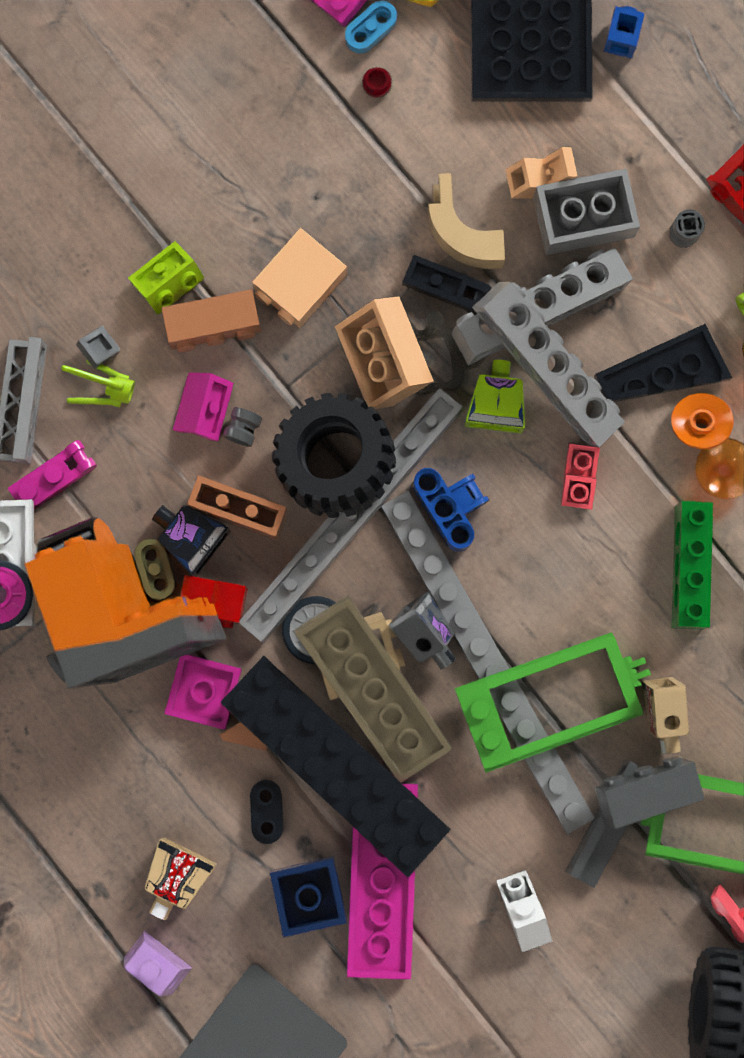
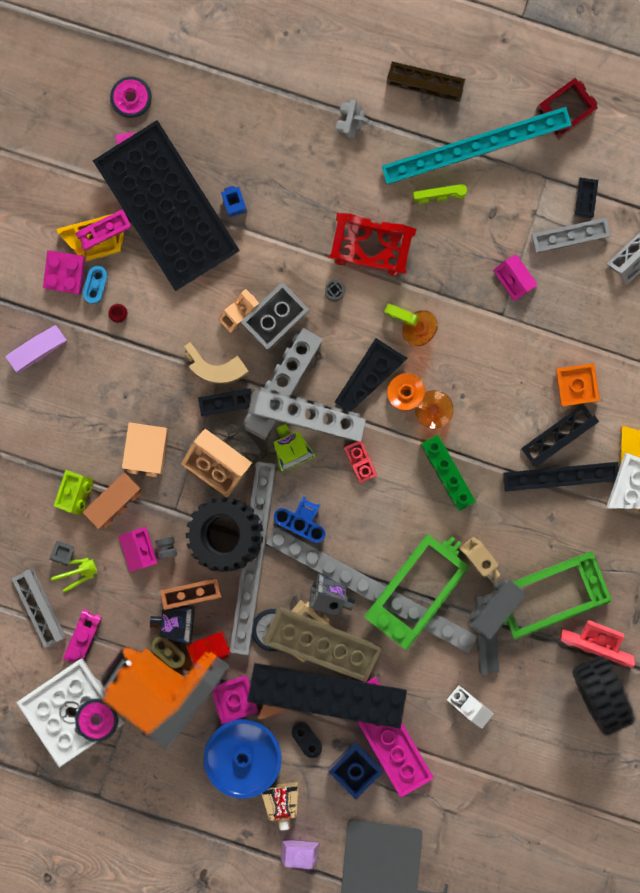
camera: 25 degrees left, 5 degrees up
(162, 779) = (242, 758): none -> blue dish
(238, 60) = (36, 349): none -> lavender slope

